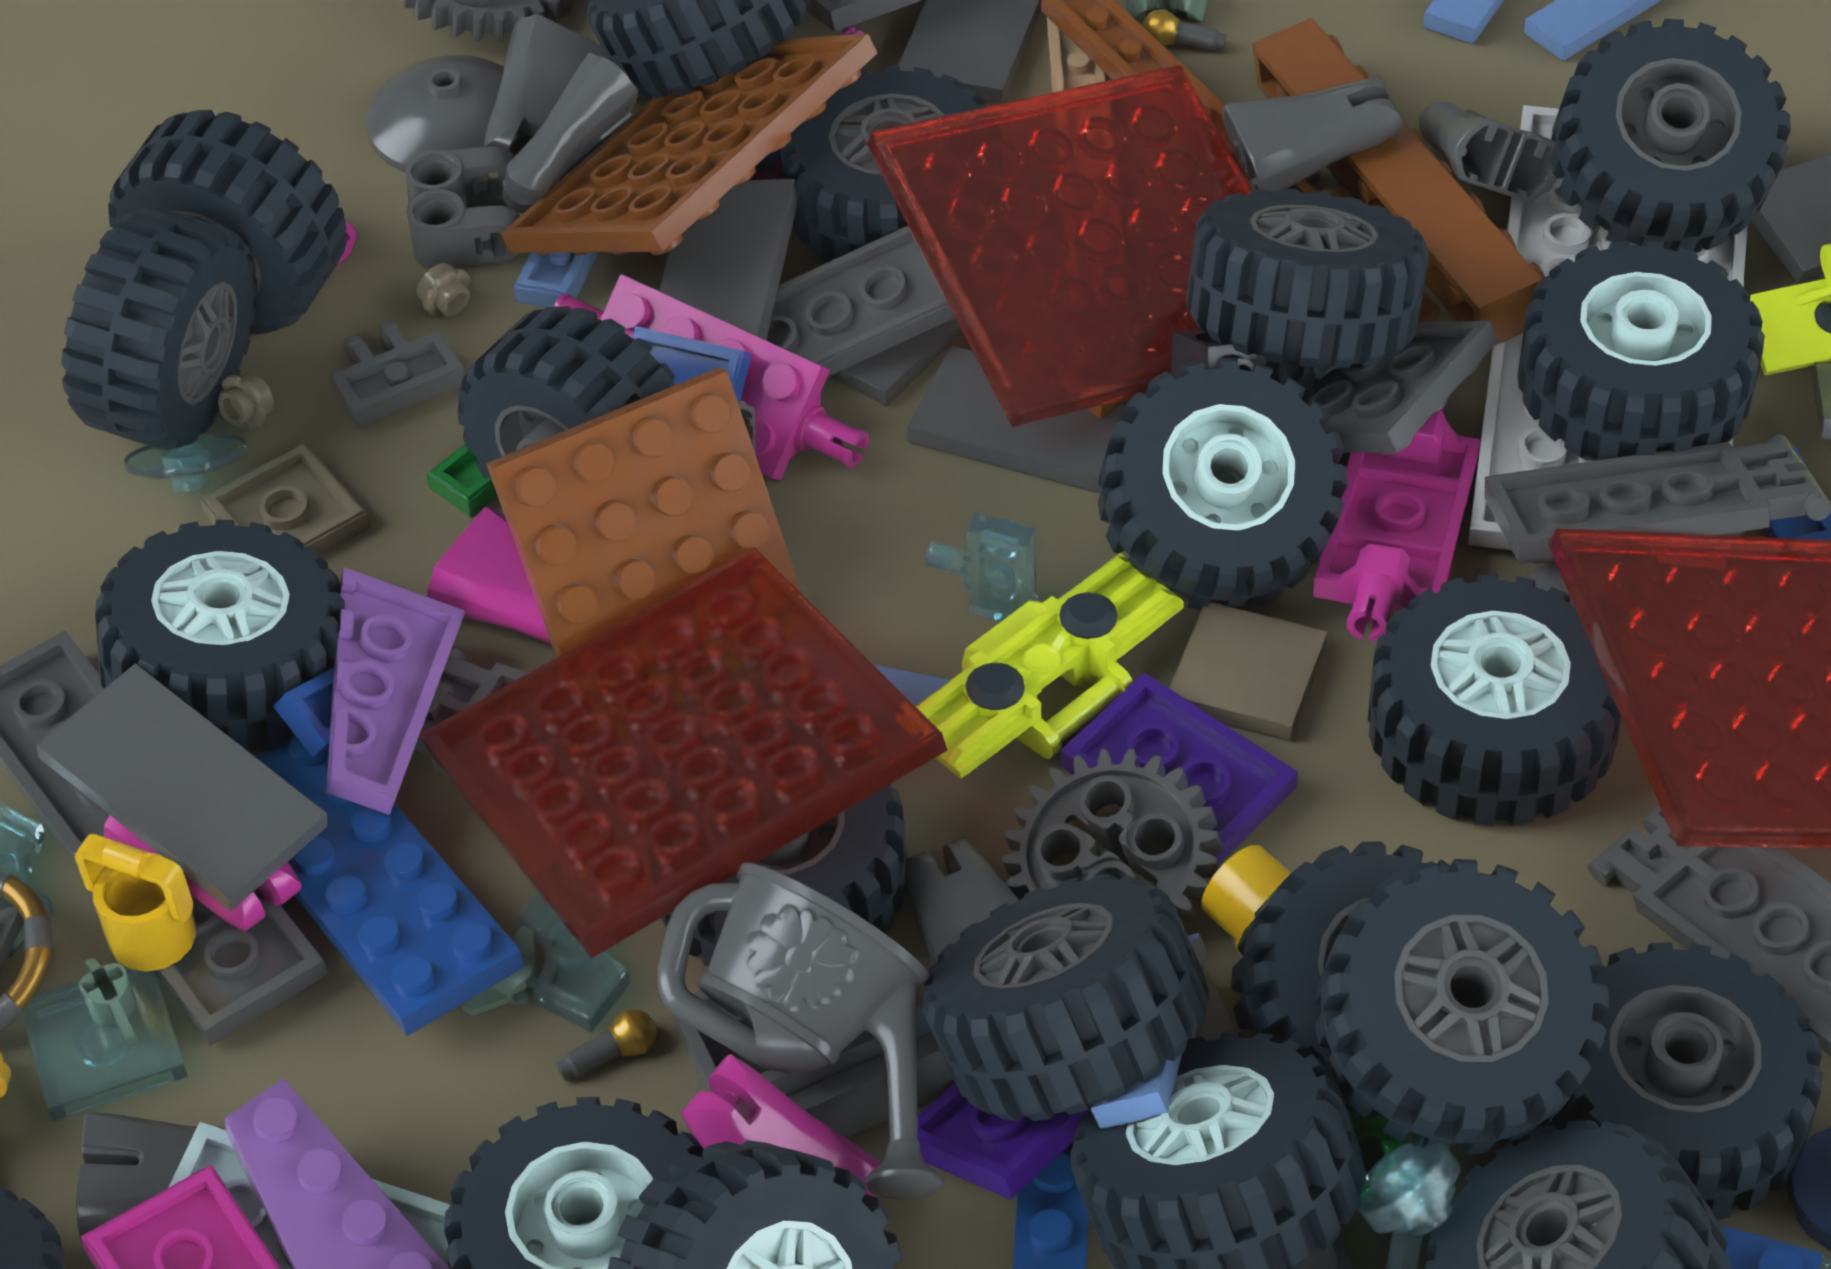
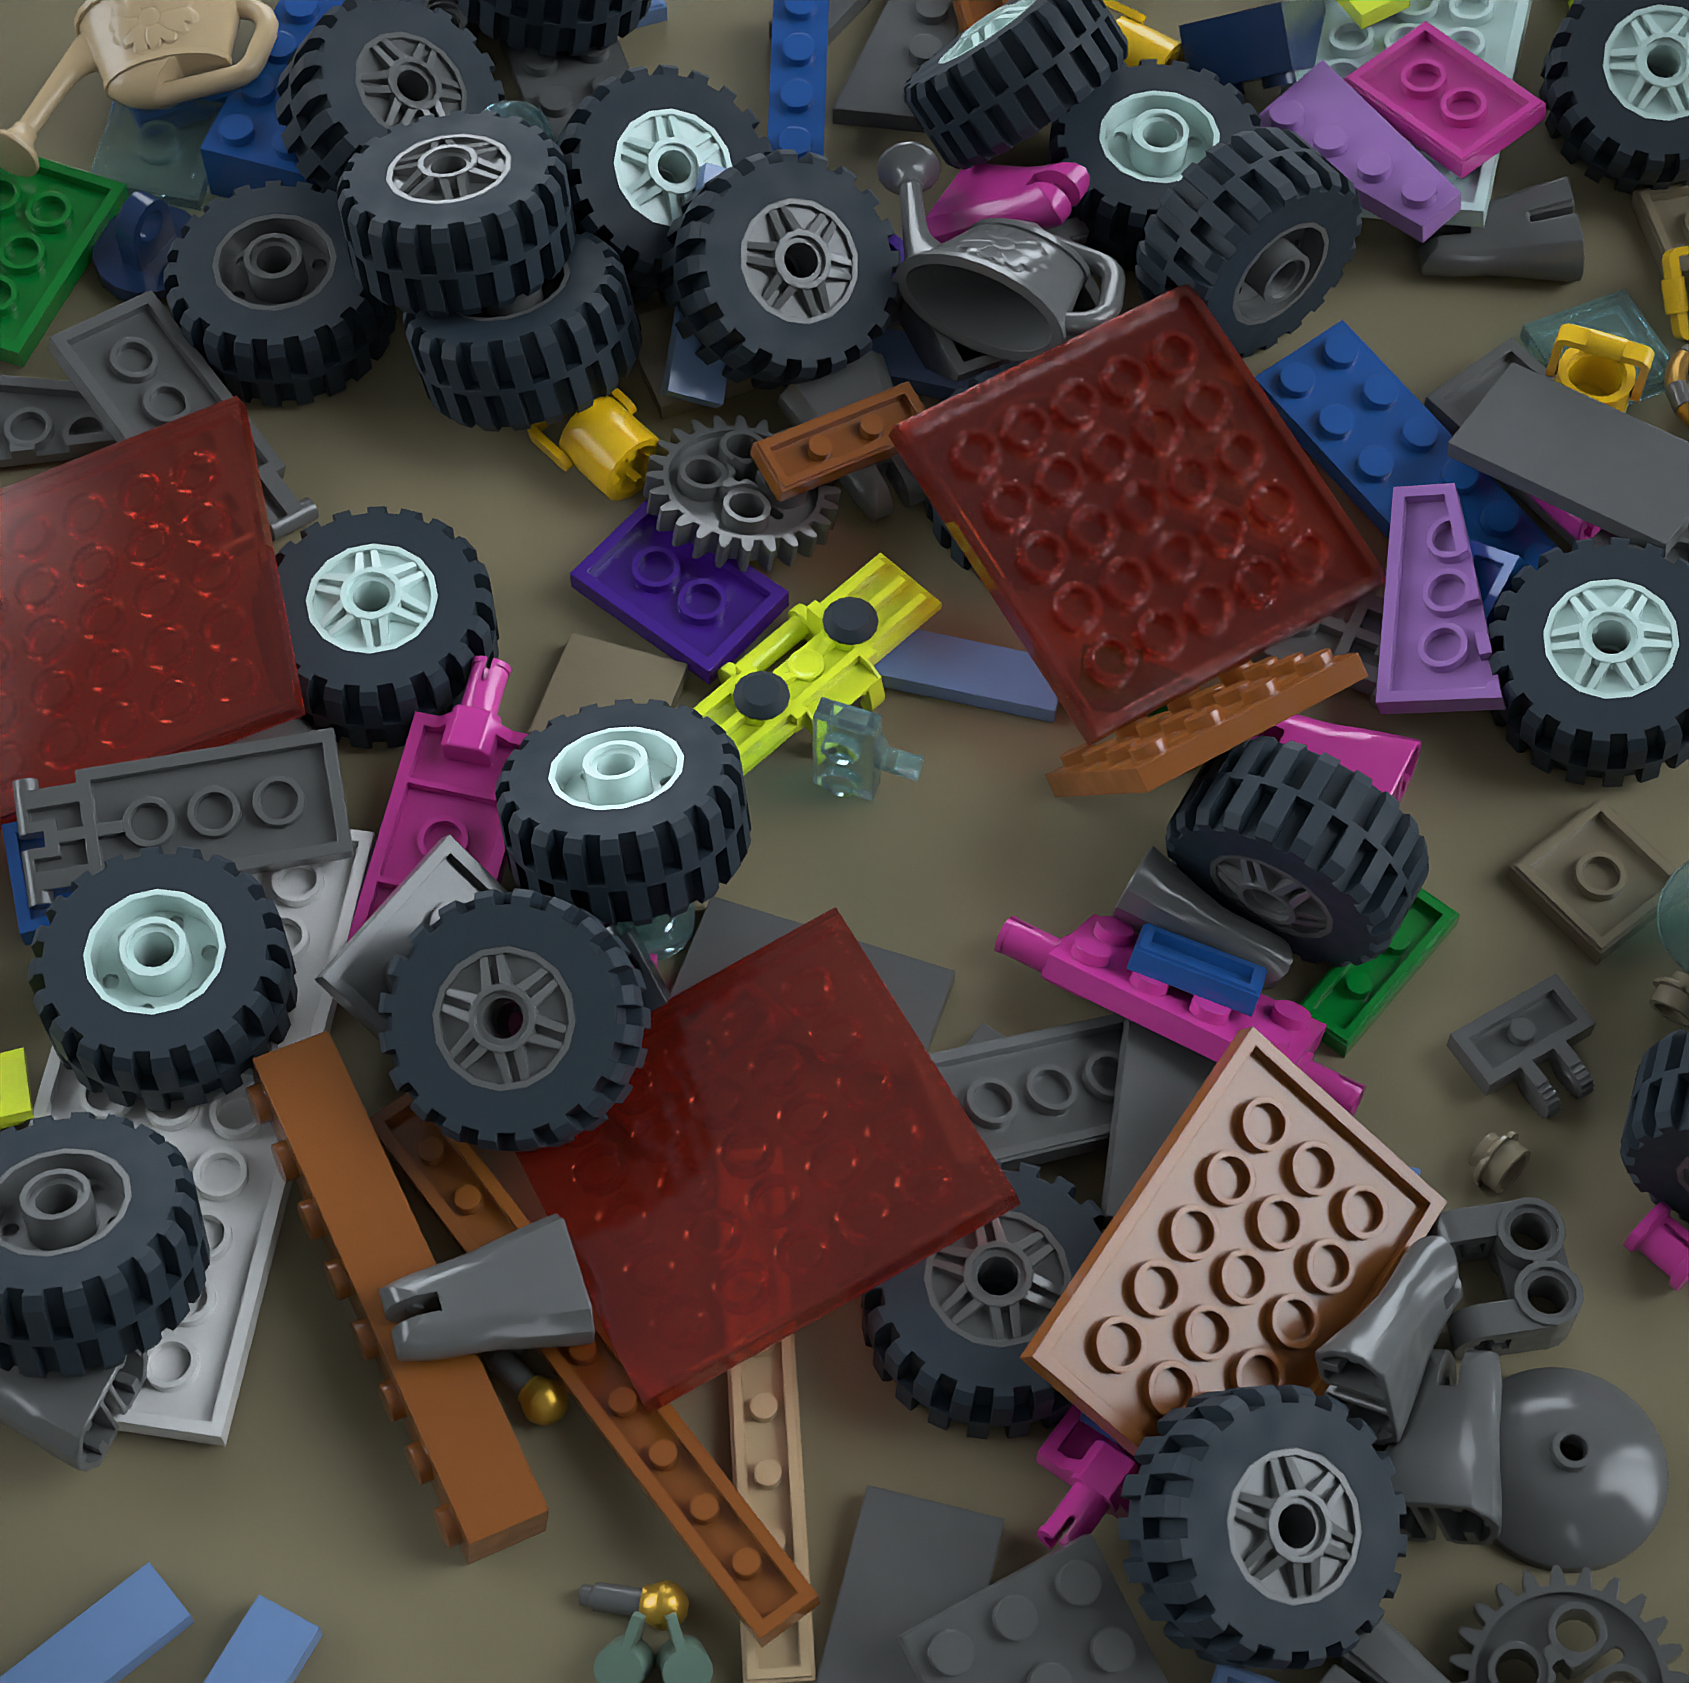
camera: 175 degrees right, 10 degrees up
(491, 1036) = (1253, 234): none -> black wheel
(995, 868) = (834, 442): none -> dark orange tile
(1490, 151) = (287, 1321): dark grey piece -> none

